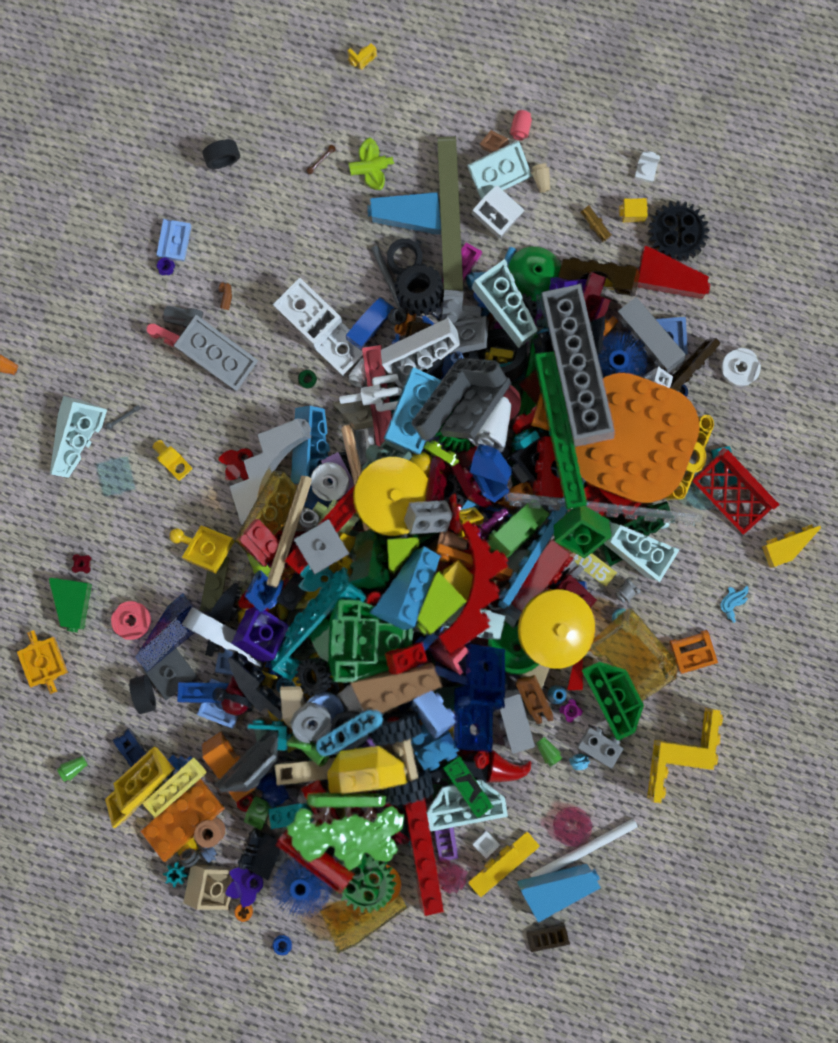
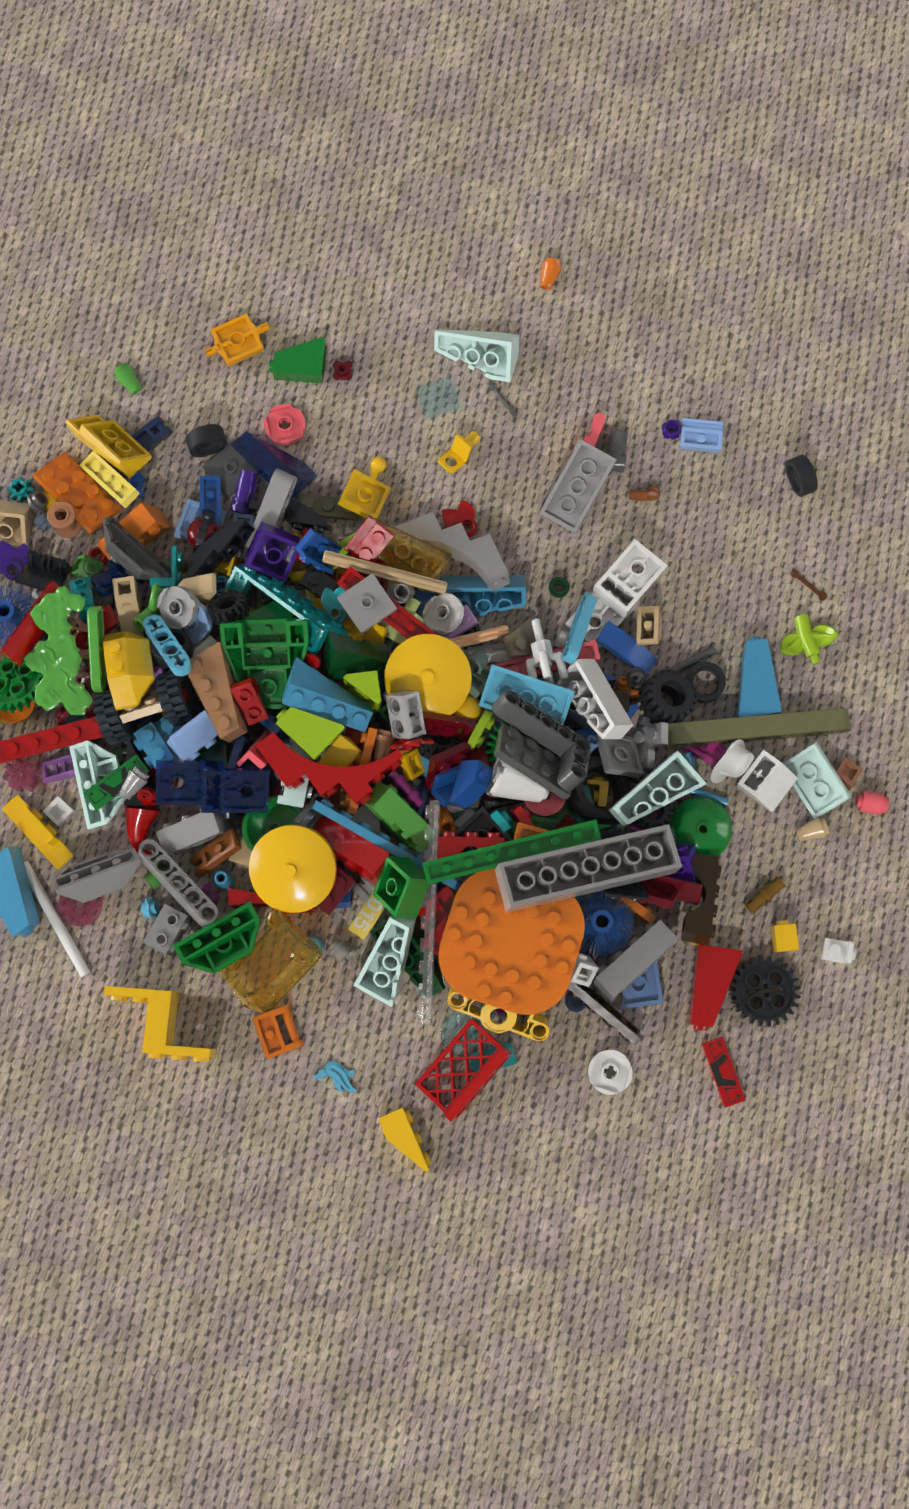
camera: 85 degrees right, 5 degrees down
(192, 659) = (244, 490): none -> dark purple axle
(351, 361) = (579, 628): none -> medium azure beam
(352, 300) = (649, 625): none -> tan slope
(470, 769) = (134, 782): none -> light grey cone
(481, 236) = (734, 762): none -> white piece
(549, 808) = (97, 875): none -> light grey wedge
(564, 725) = (176, 873): none -> light grey beam
(743, 272) = (723, 1072): none -> red tile

